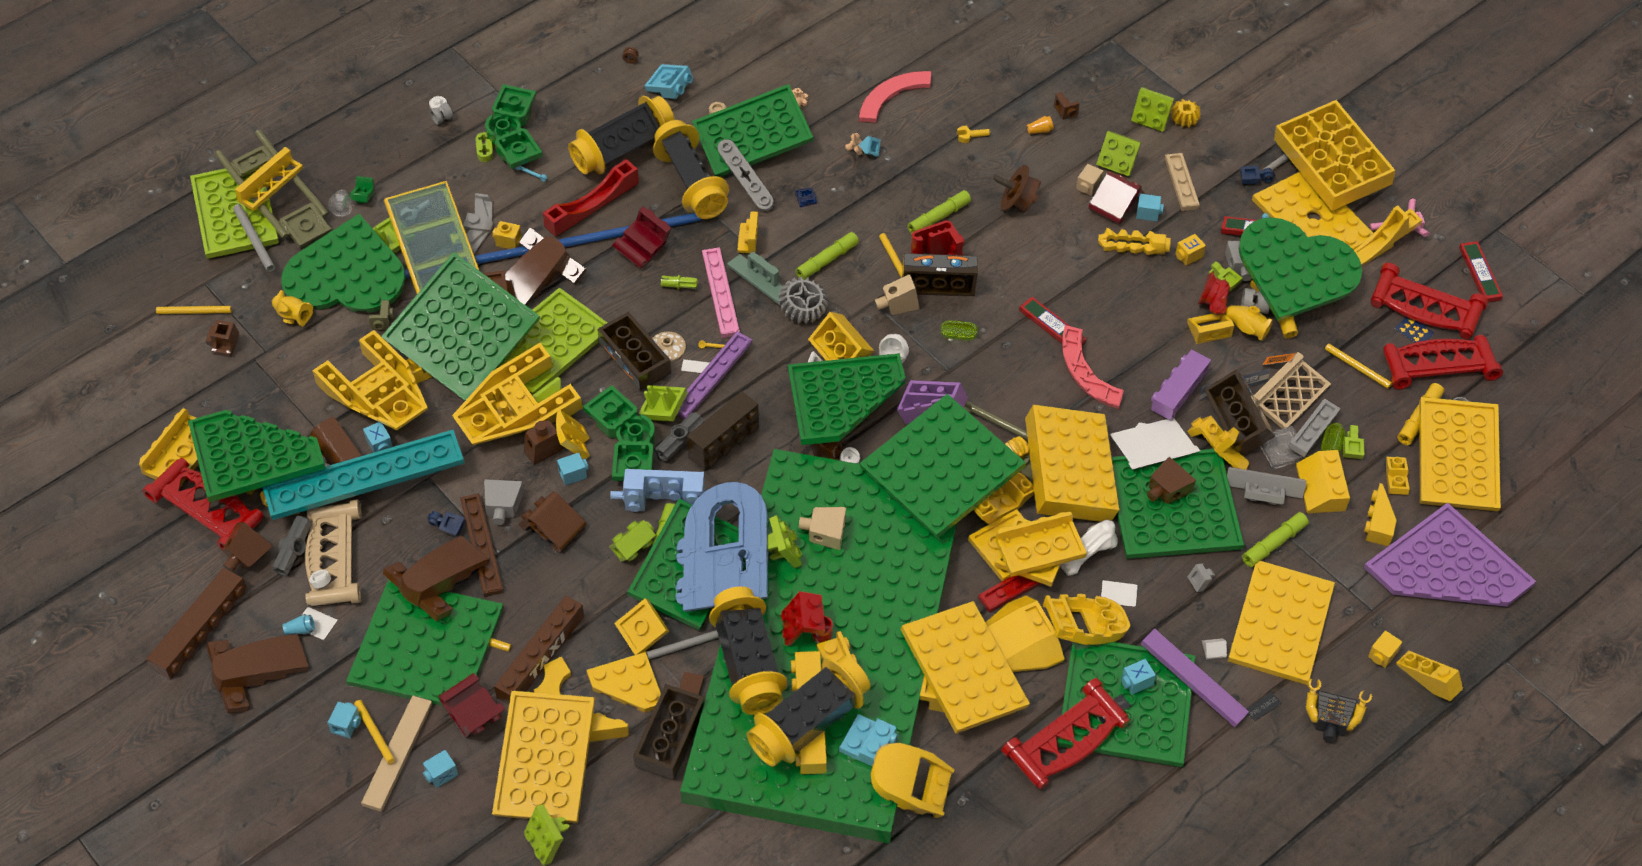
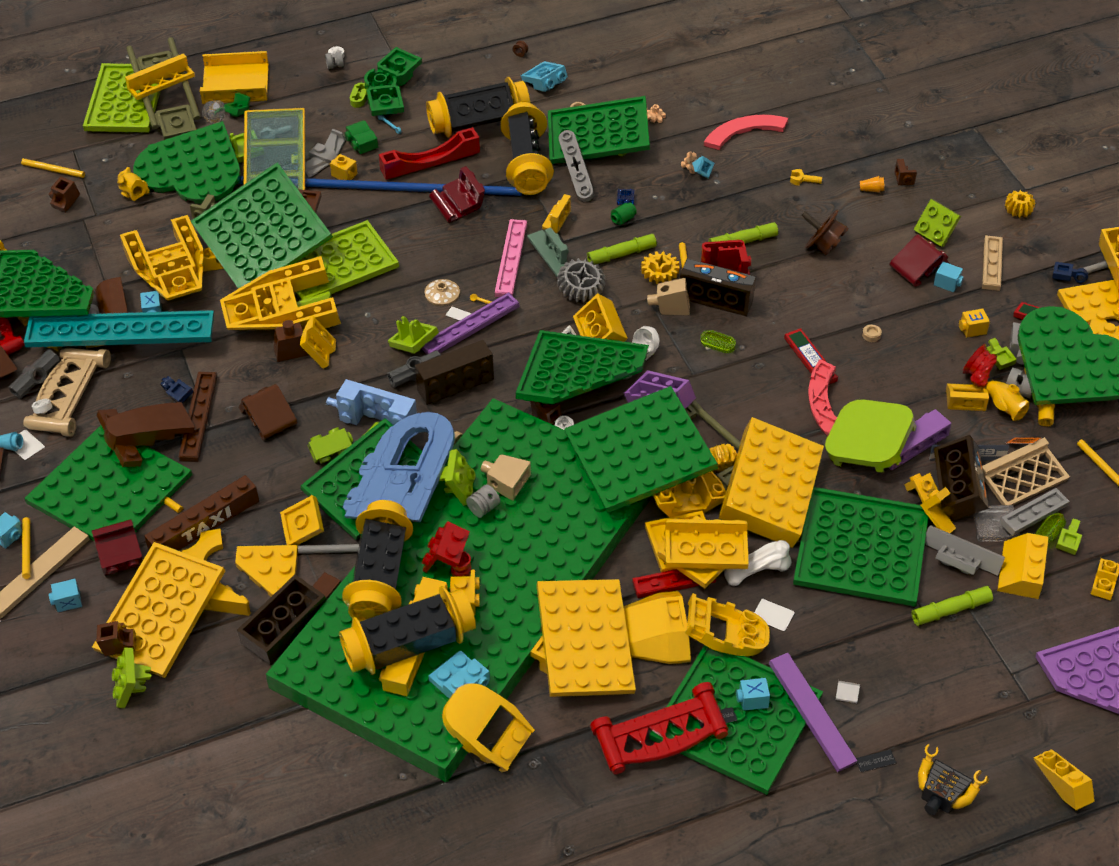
camera: 20 degrees right, 5 degrees down
(255, 240) = (127, 118): light grey piece -> none
(341, 156) = (235, 73): none -> yellow panel
(502, 499) = (233, 381): light grey torso -> none
(510, 195) = (361, 137): none -> green brick
(518, 799) = (115, 637): none -> reddish brown brick
(539, 267) = (356, 199): reddish brown slope -> none
(572, 468) = (307, 372): medium azure brick -> none
(620, 420) = (374, 352): green plate -> none
(634, 351) = (407, 286): dark brown brick -> none
(679, 282) = (476, 240): lime axle -> none
(812, 216) = (623, 213): none -> green brick
(813, 561) = (481, 503): none -> light grey piece
(873, 266) = (660, 267): none -> yellow gear
(1089, 179) = (899, 239): tan brick -> none
(1099, 284) = (871, 333): none -> tan tile
(1142, 390) = (870, 434): none -> lime tile
(1152, 109) = (986, 192): lime plate -> none
(1153, 442) = (865, 486): white sticker -> none
(1157, 242) = (943, 309): yellow sword -> none
(1170, 482) = (863, 523): reddish brown torso -> none
(1200, 577) = (860, 620): light grey tile -> none
(1281, 622) = (927, 685): yellow plate -> none
(1382, 520) = (1071, 615): yellow slope -> none
(1385, 649) = (1025, 740): yellow brick -> none

